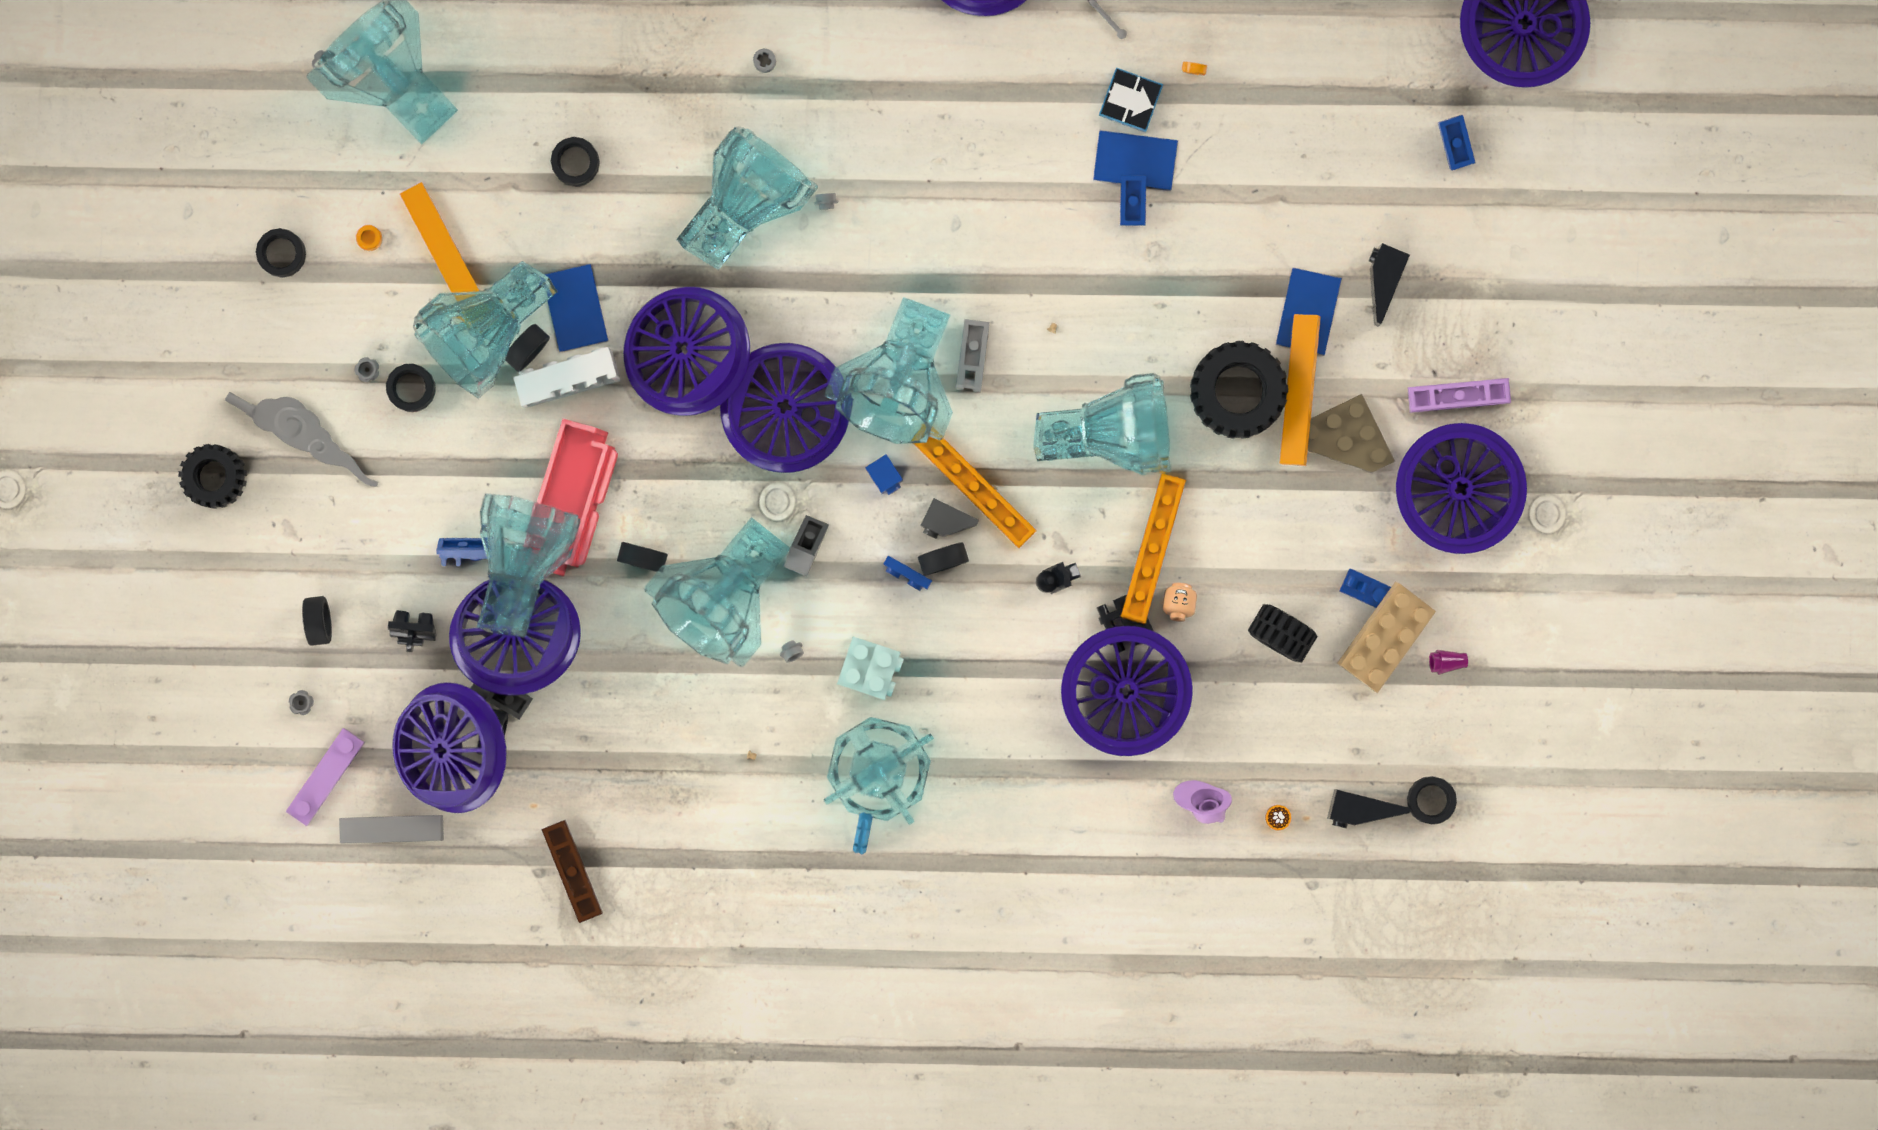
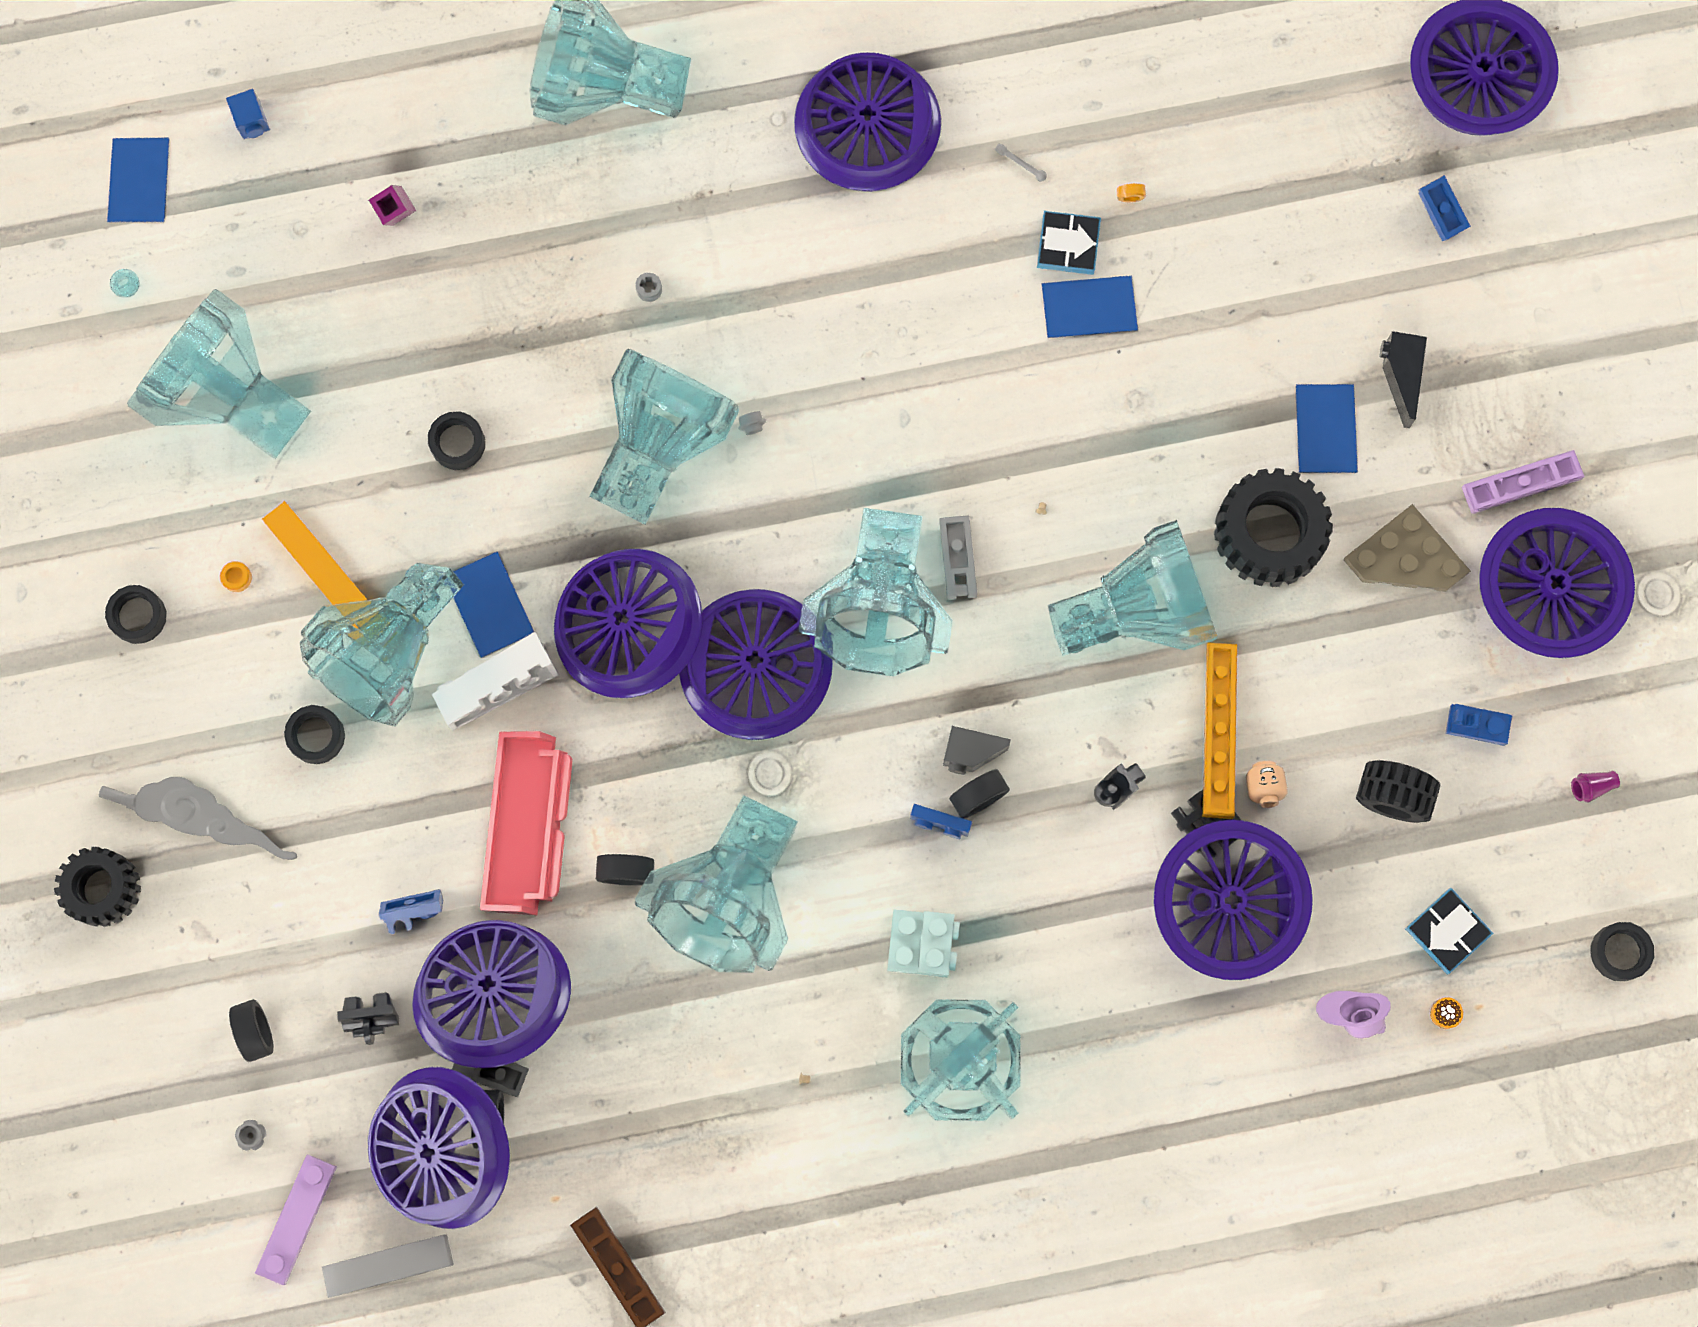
camera: 10 degrees left, 10 degrees down
(371, 364) = (252, 725): light grey plate -> none
(516, 567) = (481, 883): clear light blue plate -> none
(527, 347) = (440, 657): black tyre -> none
(791, 651) = (825, 943): light grey plate -> none
(806, 545) = (814, 815): dark grey slope -> none
(862, 833) = (959, 1141): dark azure axle -> none
(884, 475) = (888, 713): blue brick -> none
(977, 490) = (997, 707): light orange tile -> none
(1133, 200) = (1099, 346): blue plate -> none
(1297, 752) = (1449, 931): none -> tile
(1300, 390) = (1340, 497): light orange tile -> none
(1357, 809) = (1534, 982): black slope -> none
(1386, 637) = (1516, 772): tan plate -> none

